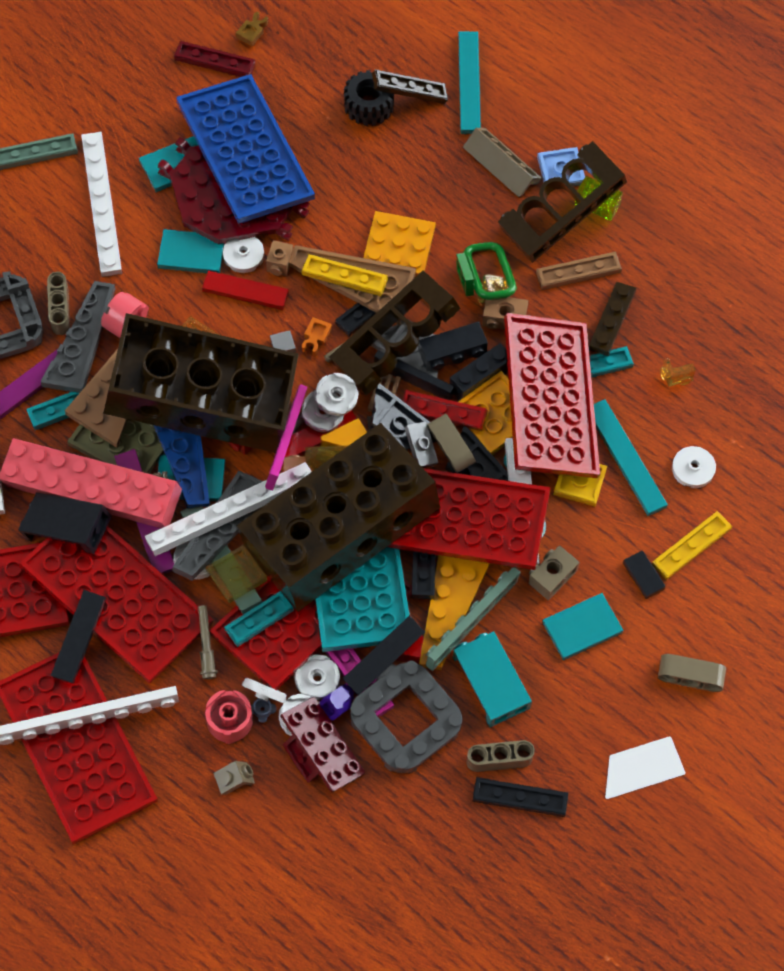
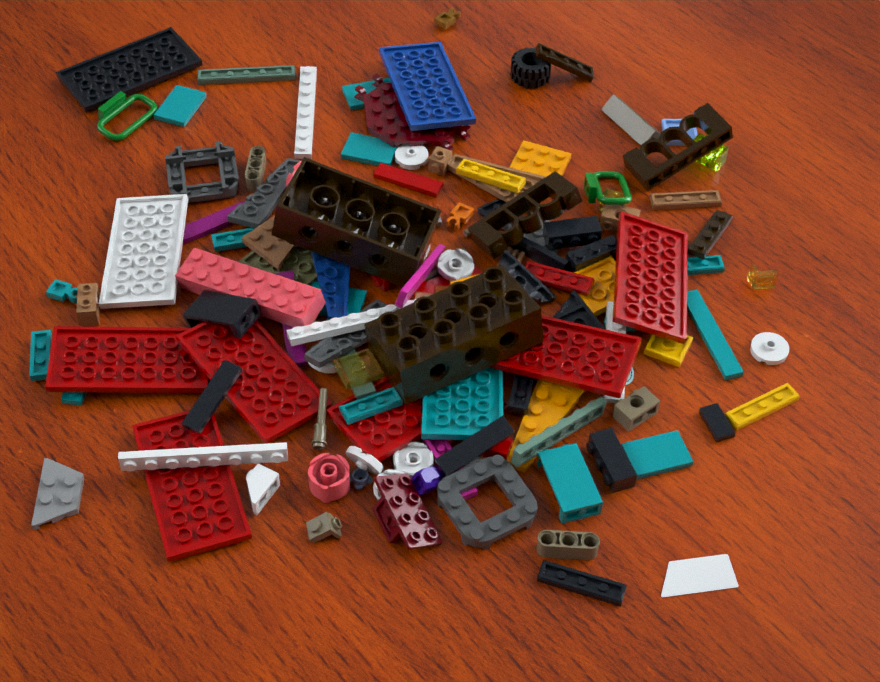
camera: 10 degrees right, 15 degrees down
(155, 737) = (261, 486): none -> white slope
(214, 59) = (412, 33): dark red tile -> none
(339, 384) = (471, 245): white plate -> none
(421, 444) = (535, 290): light grey plate -> none
(451, 443) = (560, 298): dark tan beam -> none
(469, 81) = (612, 68): teal tile -> none
(534, 643) = (611, 460): none -> black brick
(692, 672) = (753, 503): dark tan beam -> none

